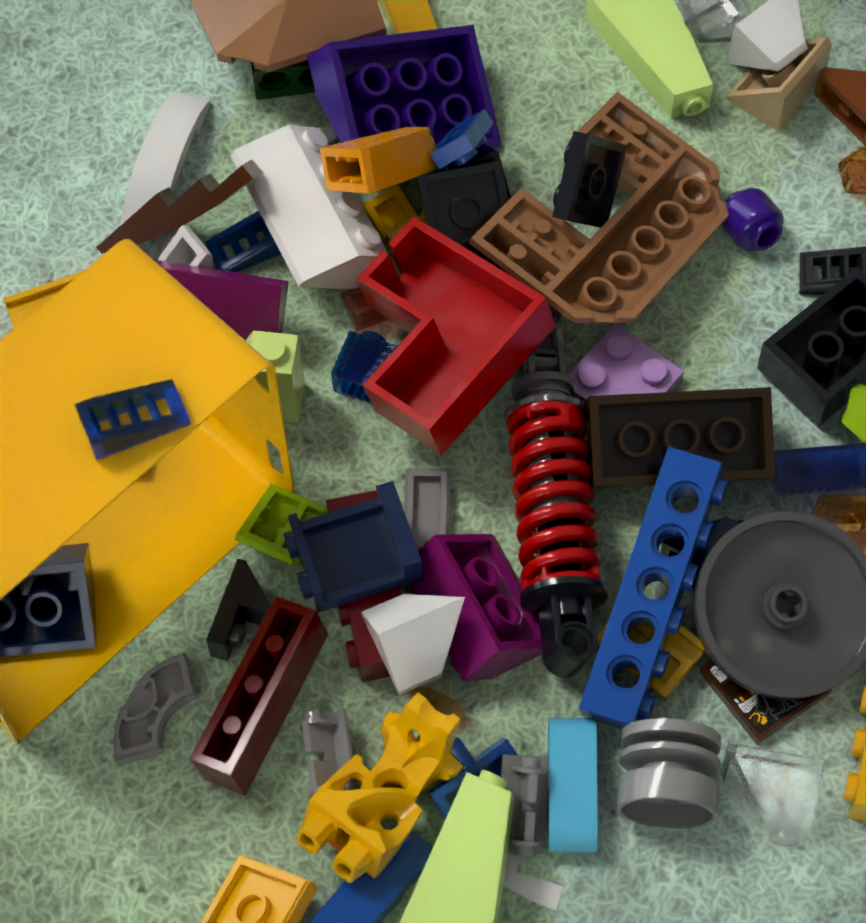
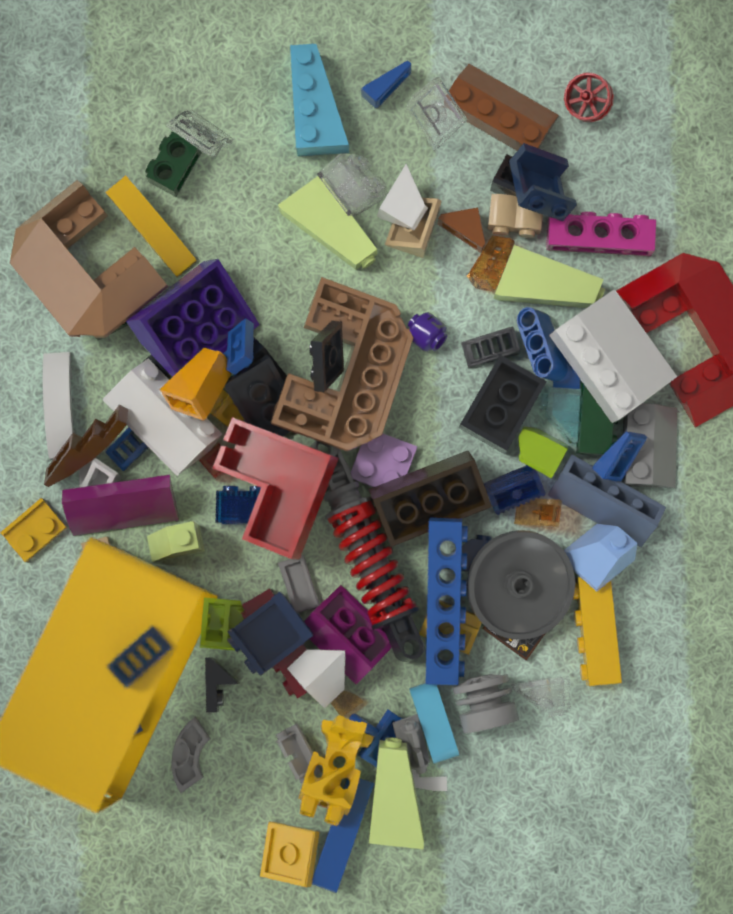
camera: 20 degrees left, 20 degrees up
(259, 696) = (247, 733): dark red brick -> none

